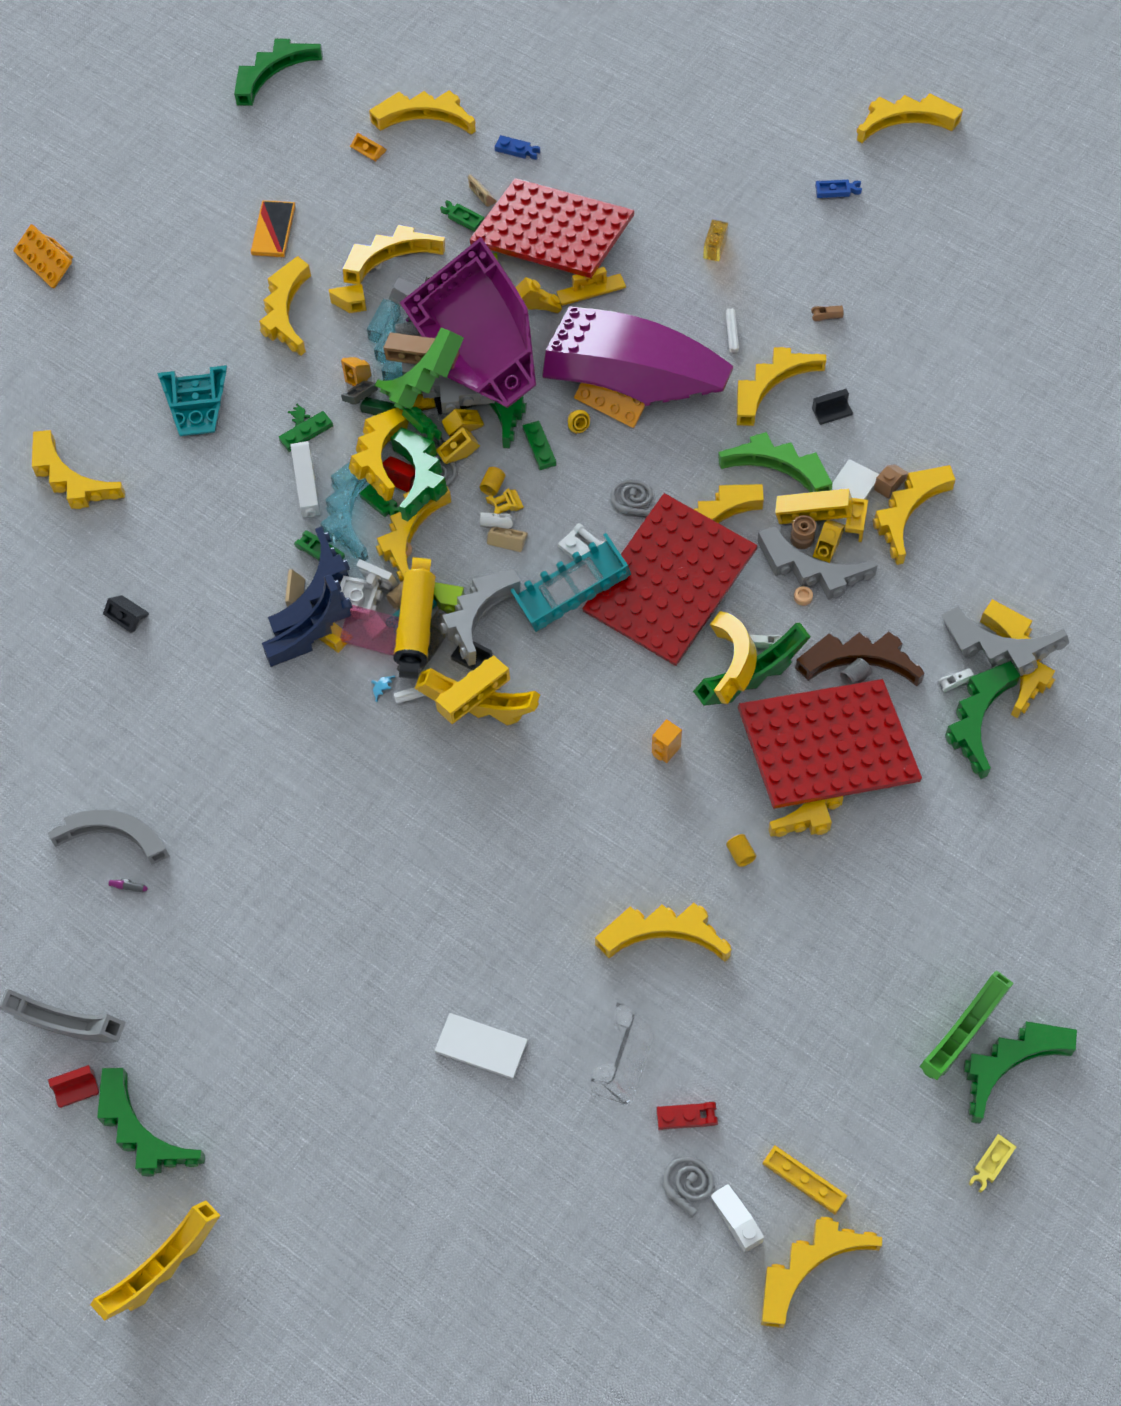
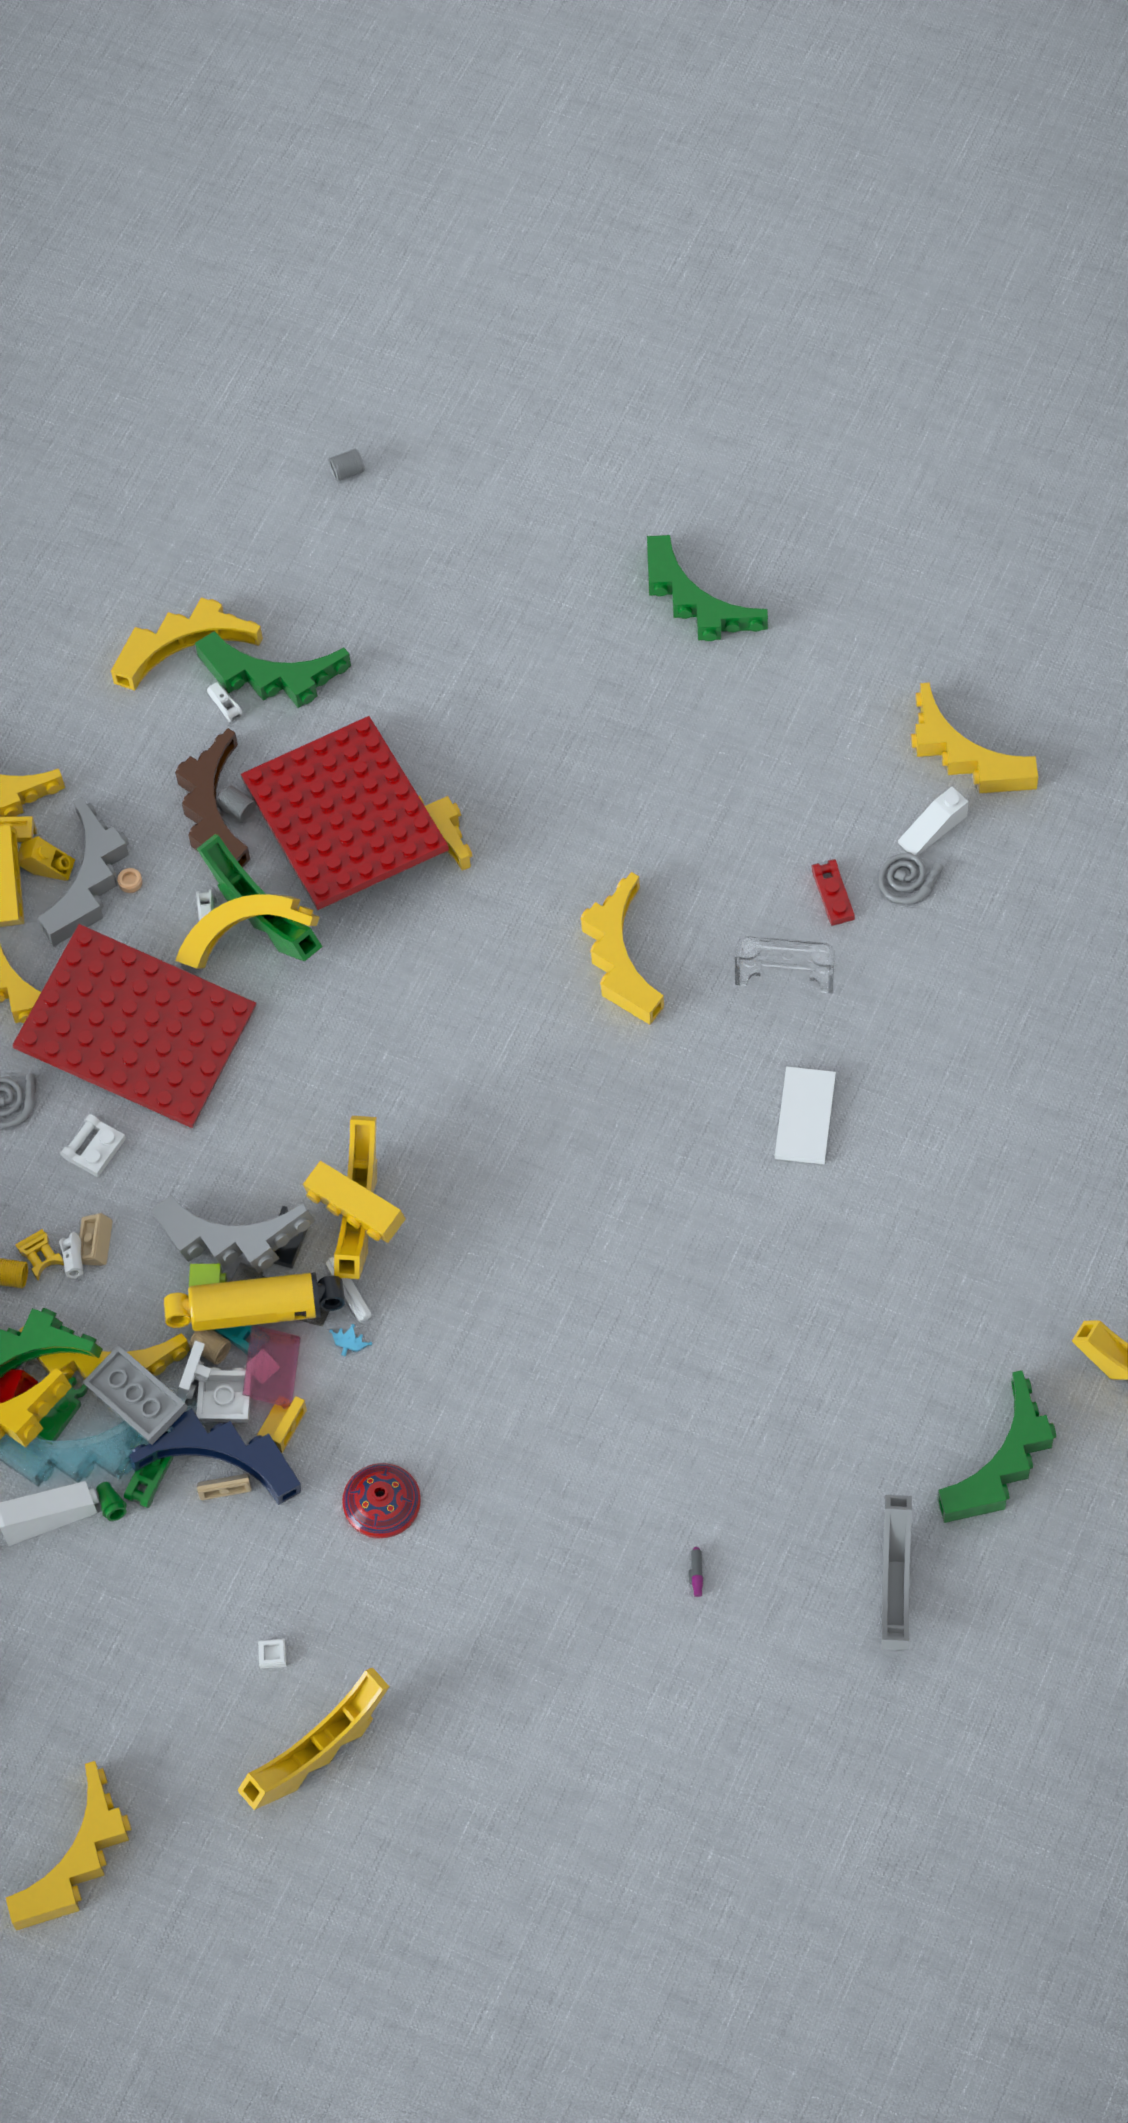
camera: 100 degrees left, 0 degrees up
(74, 1086) = (971, 1550): red panel -> none
(77, 607) = (319, 1746): none -> yellow arch
(111, 822) = (625, 1571): light grey arch -> none
(124, 612) = (295, 1700): black panel -> none
(164, 605) = (272, 1653): none -> white tile
(255, 697) = (386, 1514): none -> dish
(304, 522) = (111, 1503): none -> green cone
(316, 624) = (287, 1425): dark blue arch -> none
(365, 535) = (135, 1394): none -> light grey plate
(572, 584) = (164, 1134): teal window -> none
(666, 741) = (374, 985): light orange brick -> none
(741, 850) = (500, 887): yellow piece -> none
(803, 532) = (39, 888): medium nougat wheel -> none
(804, 1179) = (873, 770): yellow tile -> none
(966, 1027) = (675, 640): bright green arch -> none
(992, 1161) = (809, 602): light yellow plate -> none
(999, 649) = (169, 688): light grey arch -> none

